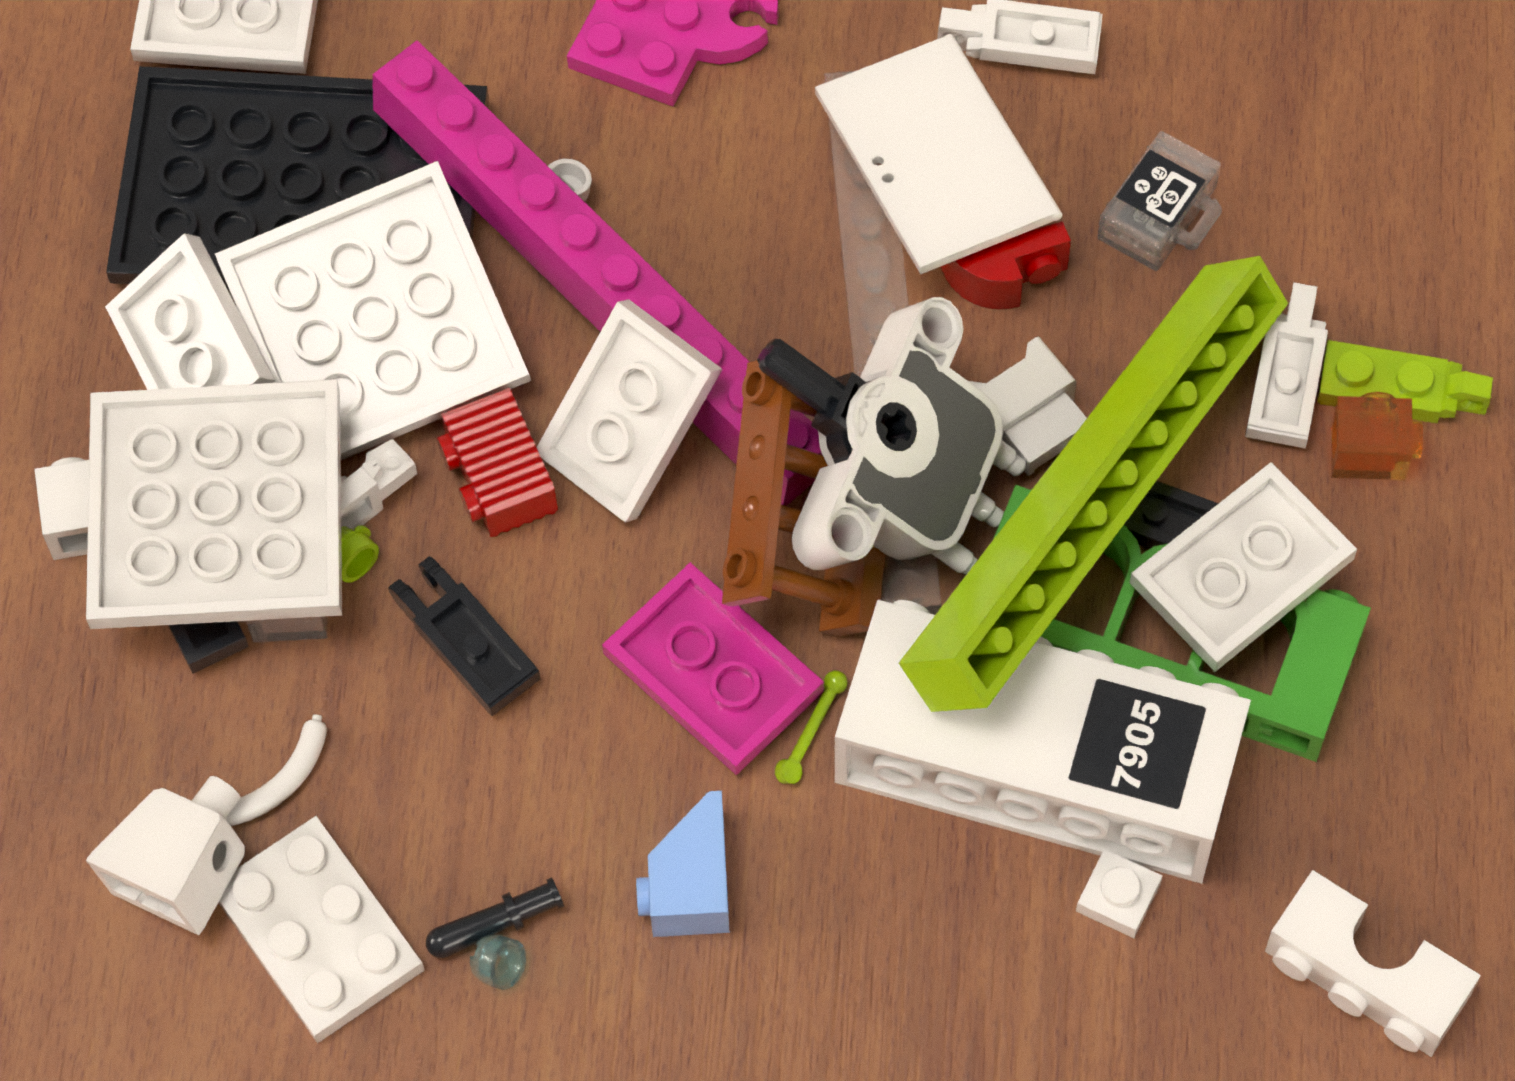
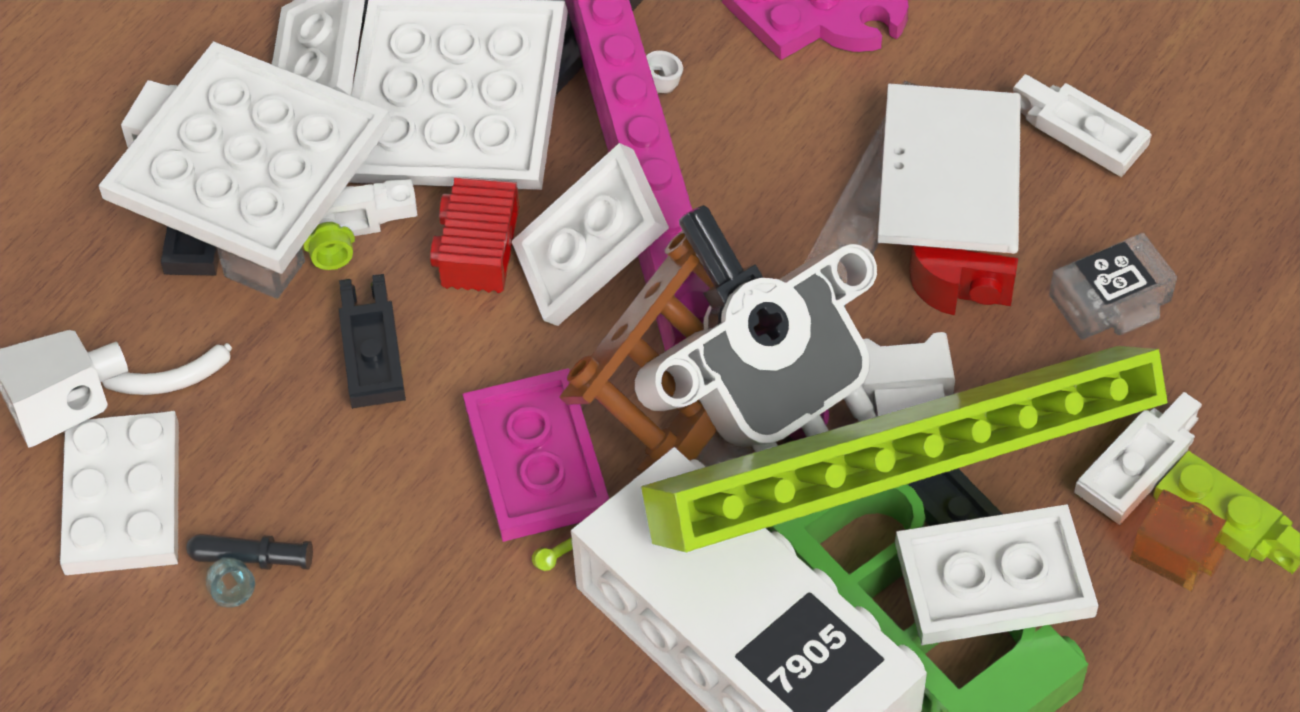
camera: 30 degrees right, 10 degrees down
(688, 875) = (414, 591): light blue slope -> none

